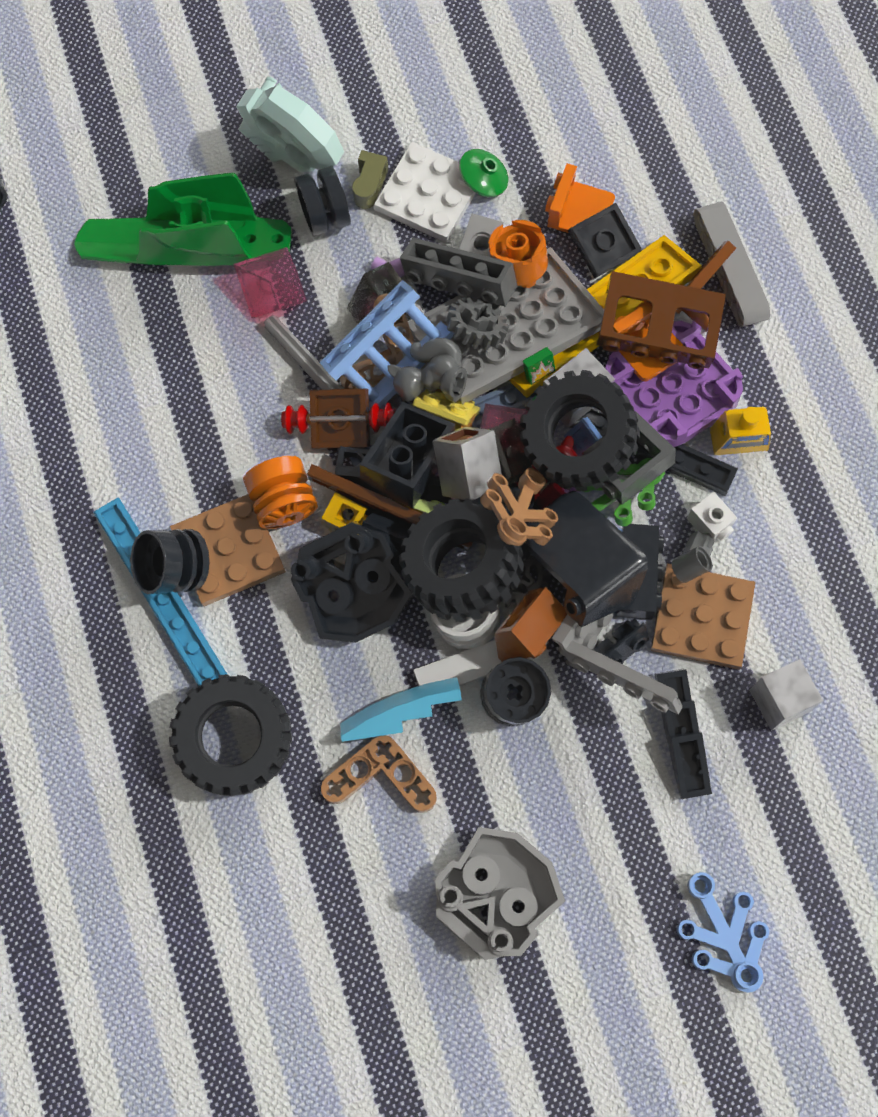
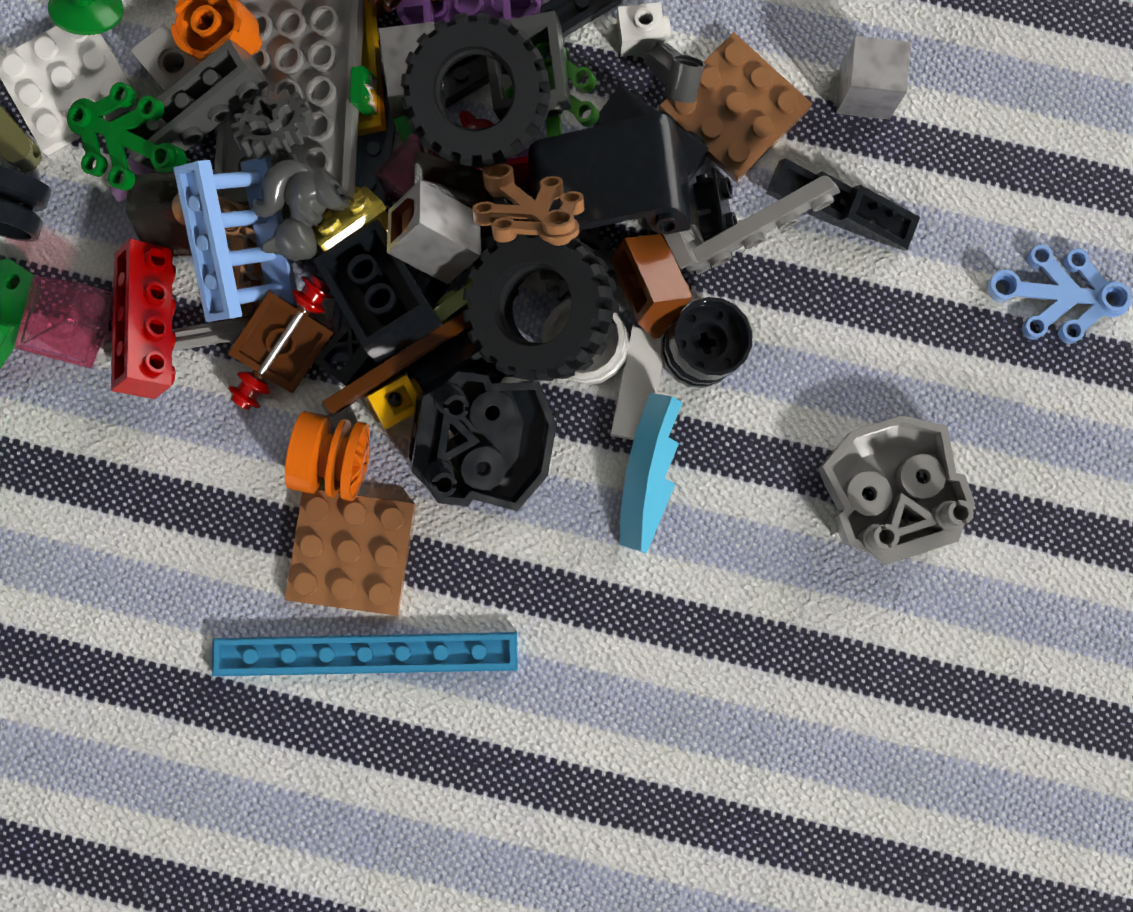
camera: 60 degrees left, 10 degrees up
(169, 561) = (333, 622): black wheel -> none
(189, 725) = (623, 667): black tyre -> none
(299, 326) = (143, 319): none -> red brick
(375, 766) = (688, 534): medium nougat beam -> none
(409, 216) = (87, 119): none -> green plant
(584, 435) = (470, 97): medium blue tile -> none

